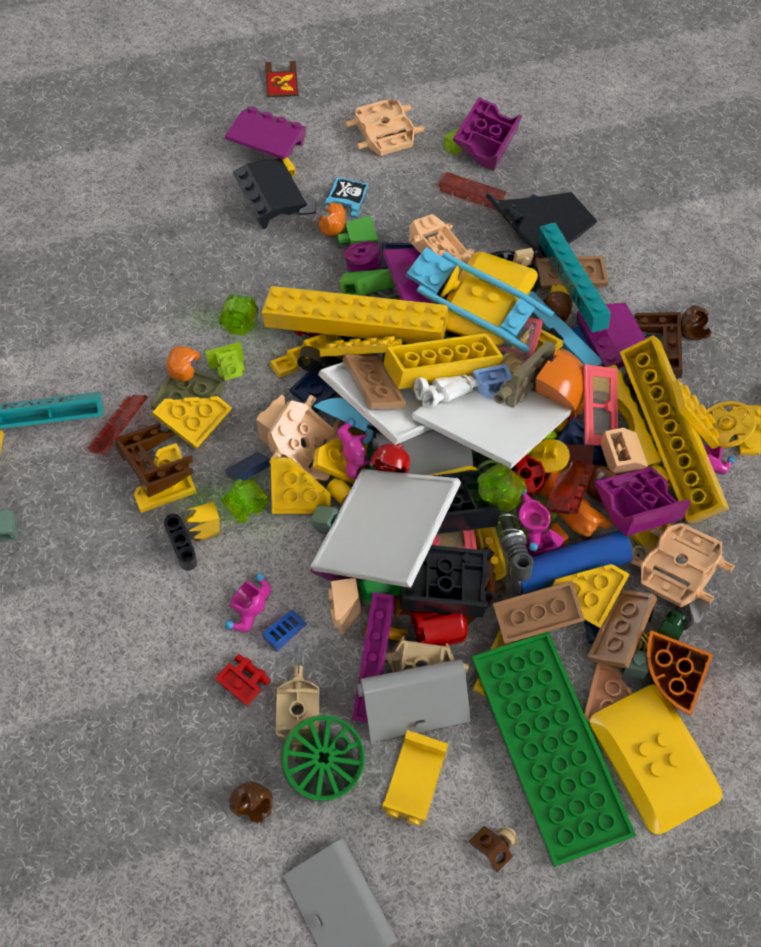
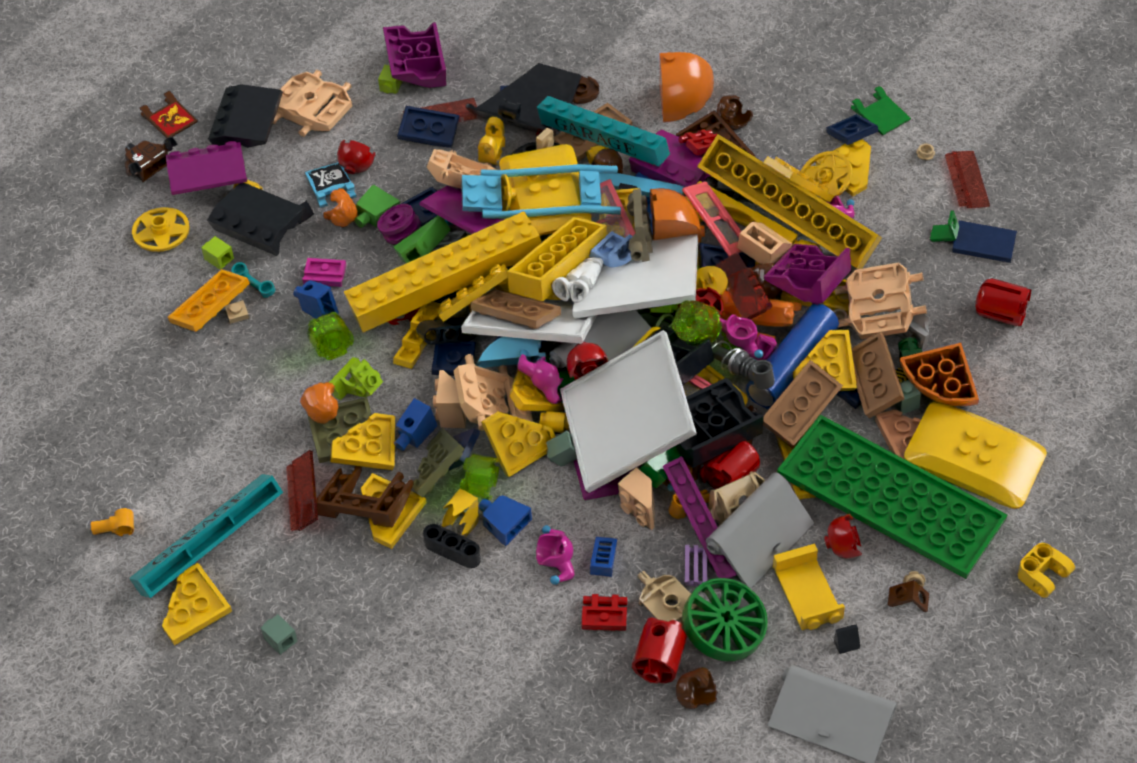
camera: 30 degrees left, 10 degrees down
(184, 233) = (208, 300): none -> light orange plate
(198, 254) = (236, 311): none -> tan plate
(202, 160) = (160, 229): none -> yellow wheel
(221, 468) = (442, 452): none -> olive plate
(222, 201) = (217, 252): none -> lime brick
(226, 227) = (266, 287): none -> teal bar
(235, 100) = (147, 158): none -> reddish brown torso
(235, 426) = (415, 425): none -> blue torso
(237, 546) = (504, 517): none -> blue torso
(248, 748) = (659, 651): none -> red cylinder
(253, 274) = (316, 299): none -> blue torso
(282, 262) = (325, 271): none -> dark pink plate
(326, 109) = (245, 115): none -> black piece
(334, 703) = (695, 550): none -> lavender tile
(376, 186) = (354, 157): none -> red cylinder
(408, 849) = (847, 639): none -> black slope
(451, 194) = (428, 127): none -> dark blue tile
(478, 752) = (842, 537): none -> red cylinder
(483, 238) = (491, 144): none -> yellow piece
(595, 237) = (587, 90): none -> reddish brown tile
(623, 896) = (1038, 561): none -> yellow piece
(642, 330) = (699, 141): none -> red plate
(673, 276) = (684, 84): none -> orange brick

